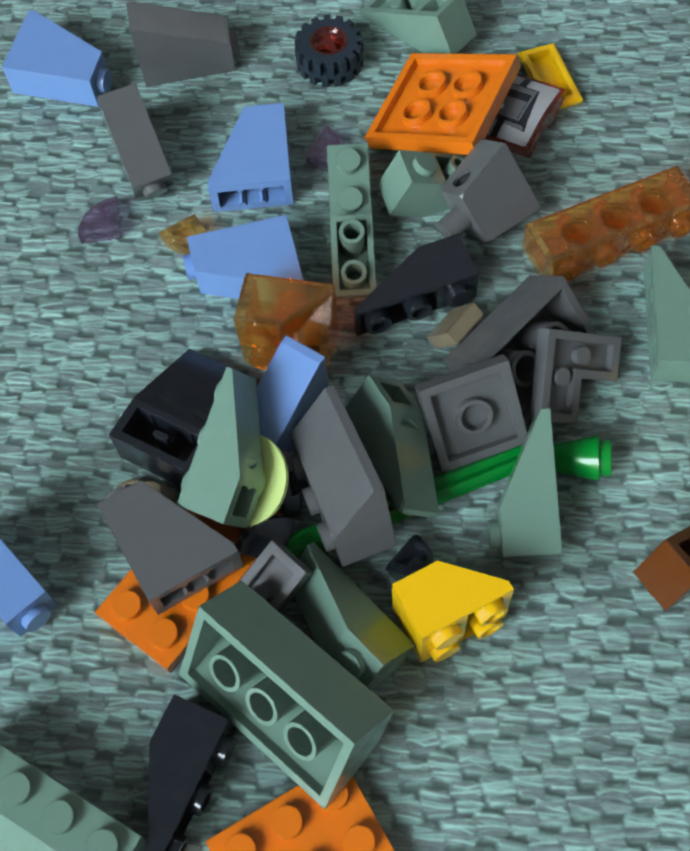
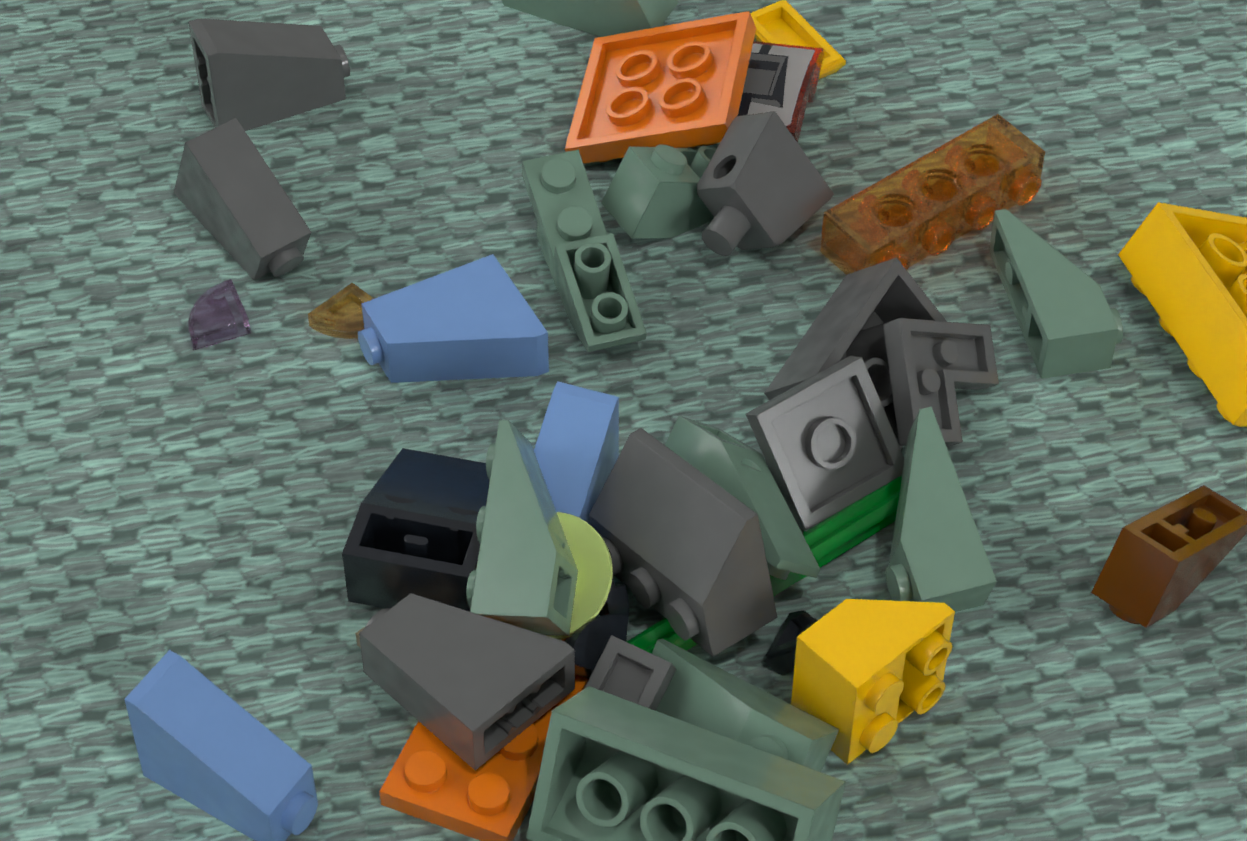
camera: 20 degrees left, 15 degrees down
(55, 64) = (85, 125): medium blue slope -> none
(254, 162) = (423, 204): medium blue slope -> none
(282, 307) = (525, 359): clear orange slope -> none
(317, 153) = (506, 176): clear purple tile -> none
(329, 50) = (477, 52): black wheel -> none
(425, 281) = (703, 312): black slope -> none
(455, 326) = (765, 354): dark tan tile -> none
(584, 457) = (992, 476): green cone -> none

